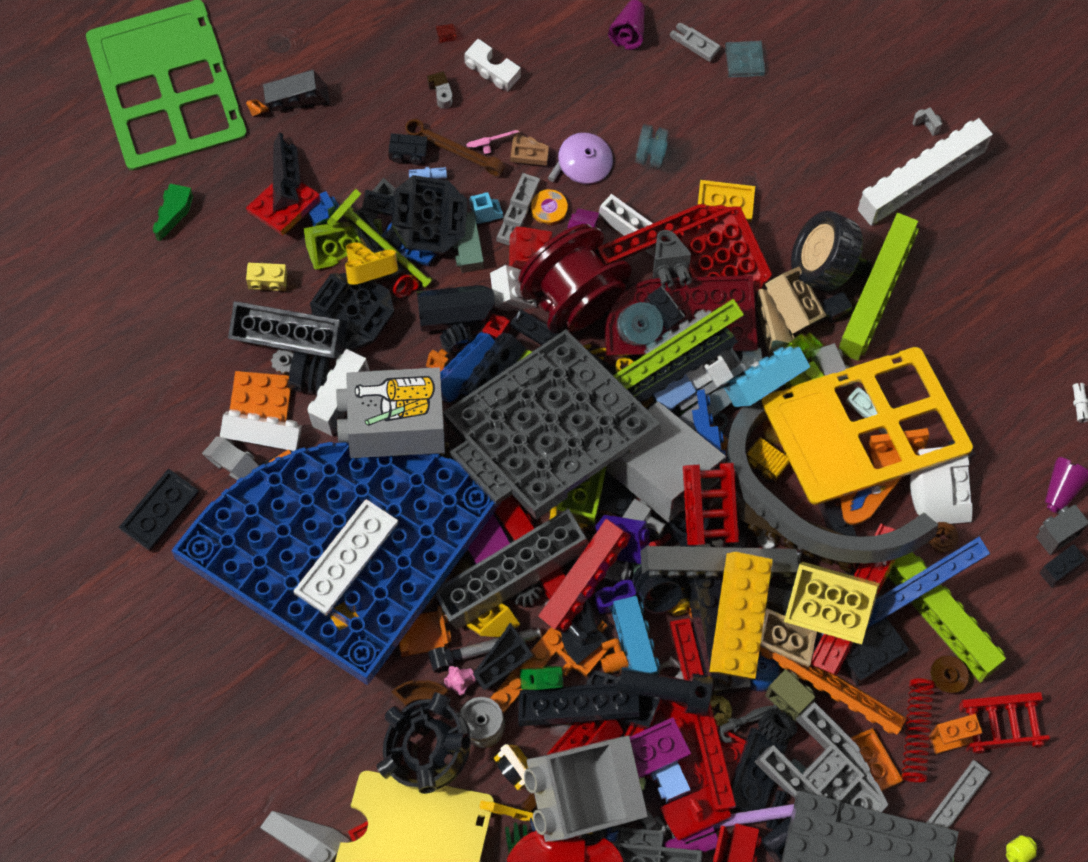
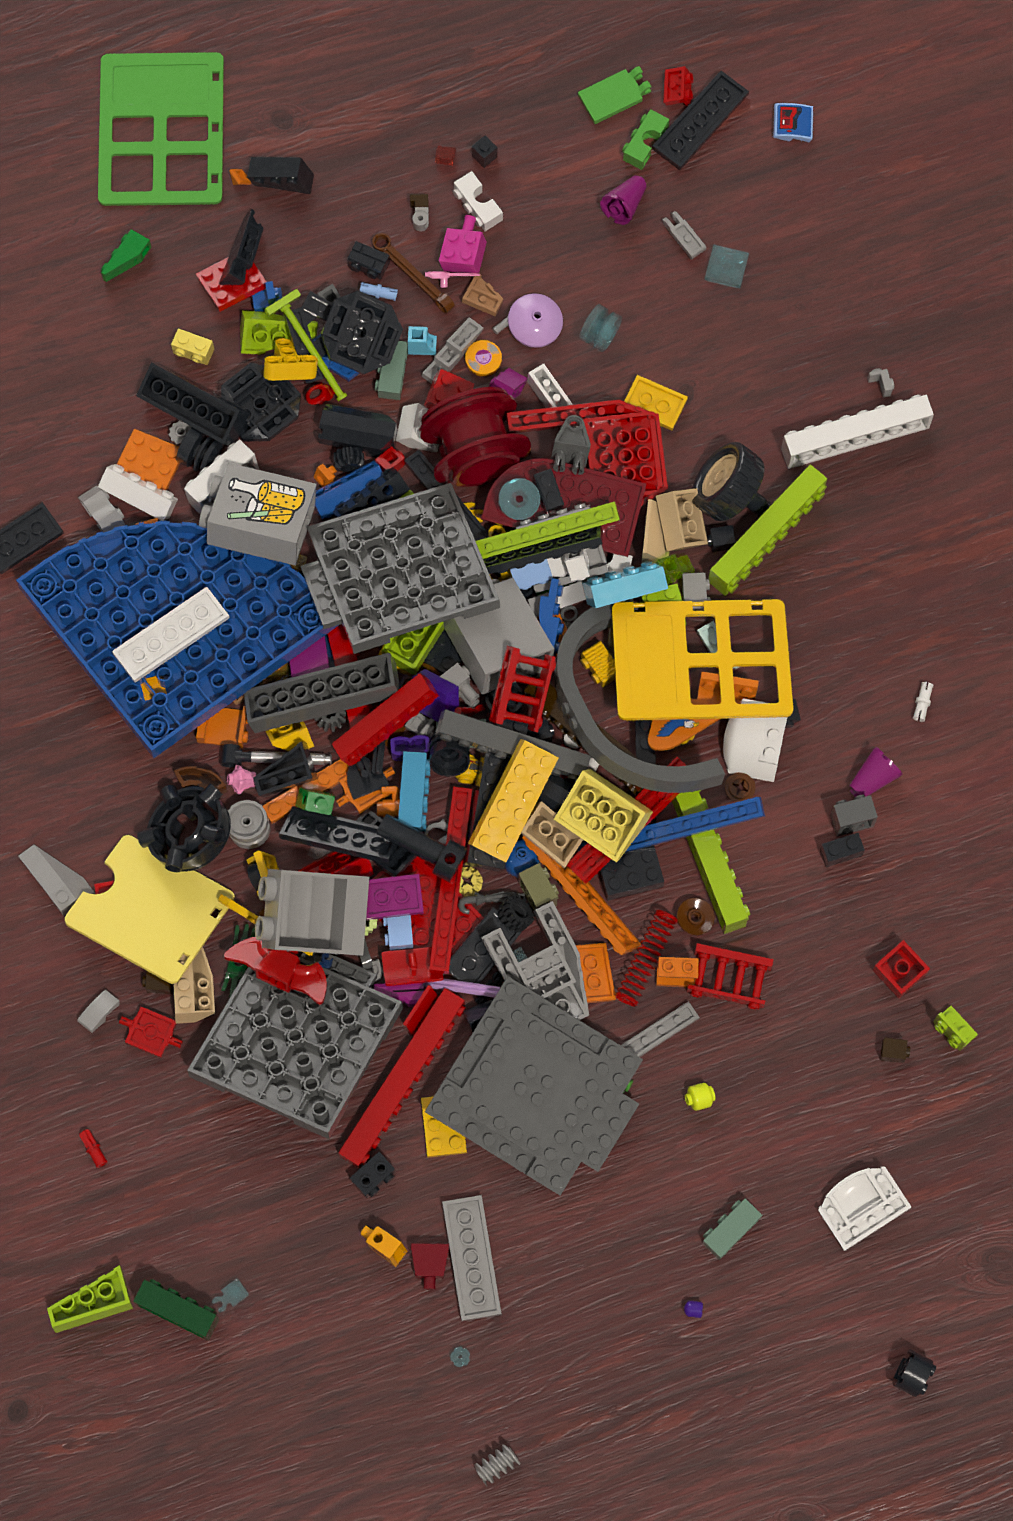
camera: 20 degrees right, 5 degrees up
(482, 18) = (484, 151): none -> black brick
(494, 111) = (463, 248): none -> dark pink brick

